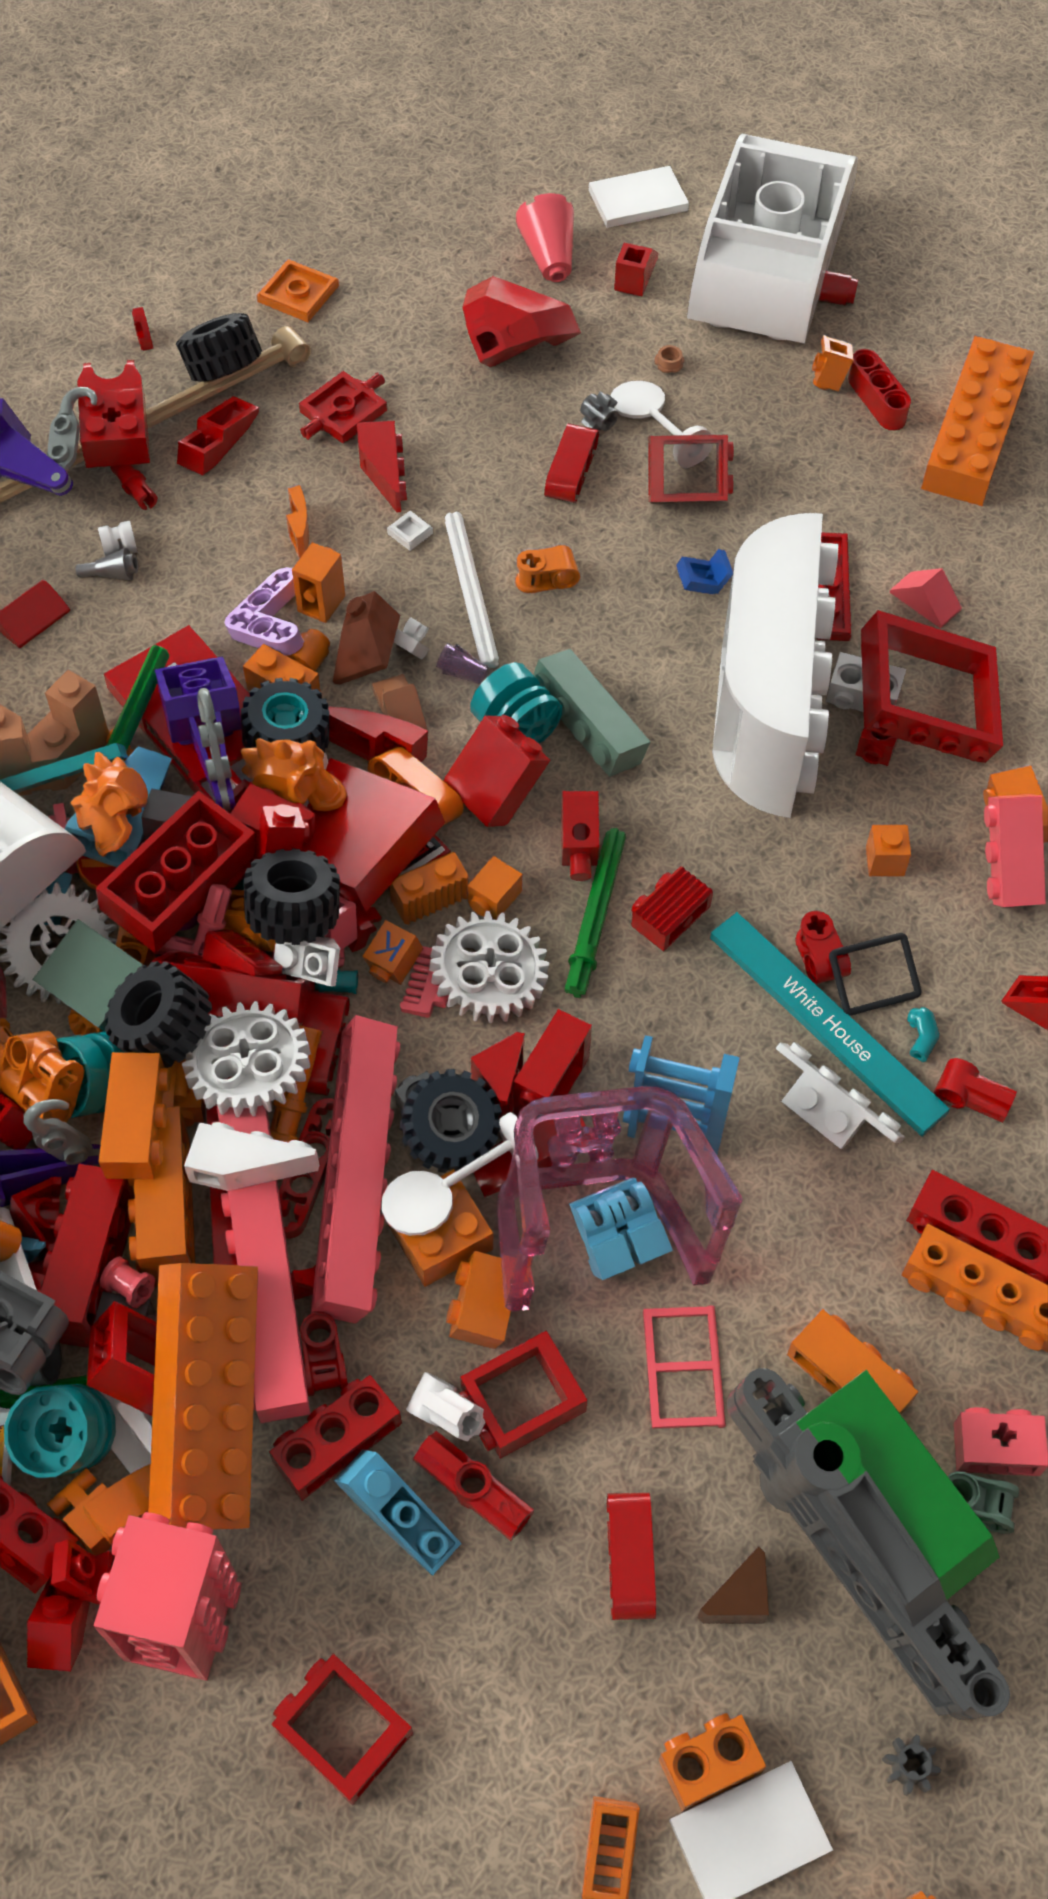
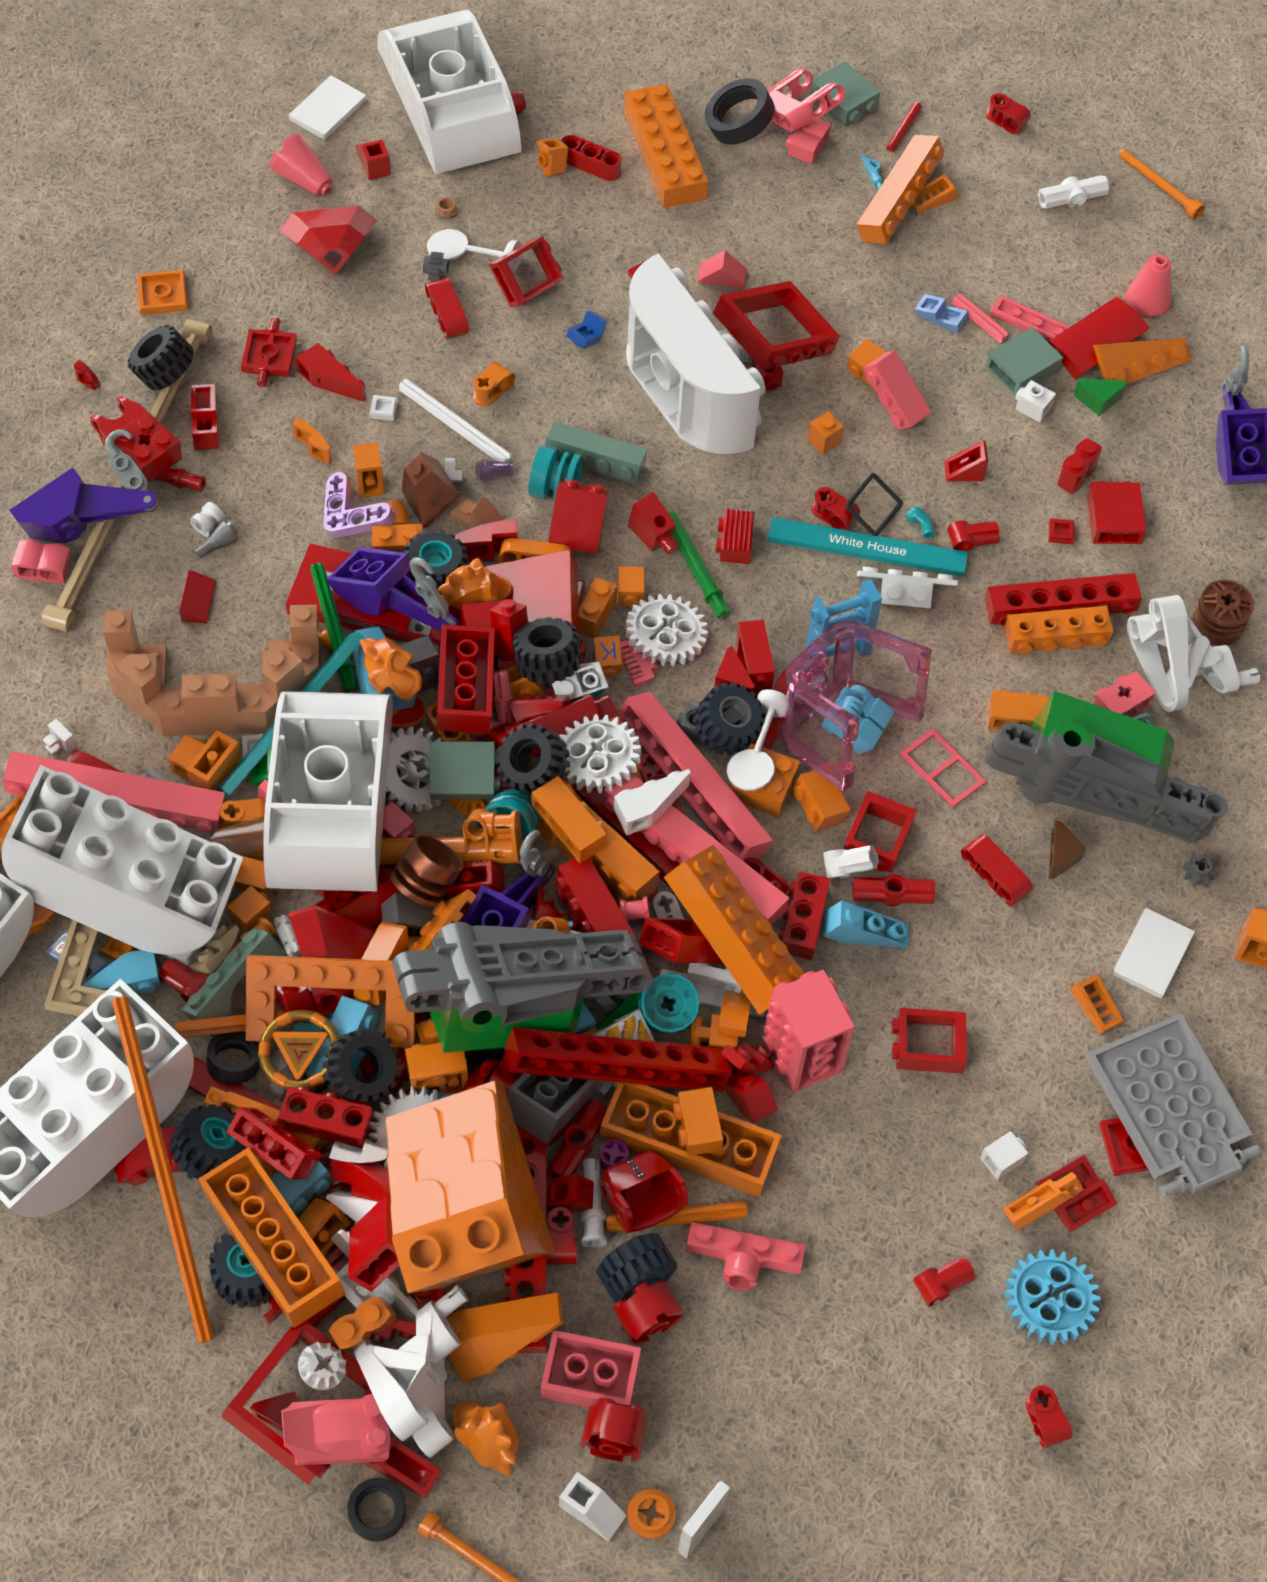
camera: 40 degrees left, 0 degrees up
(717, 1772) = (1110, 932): orange brick -> none

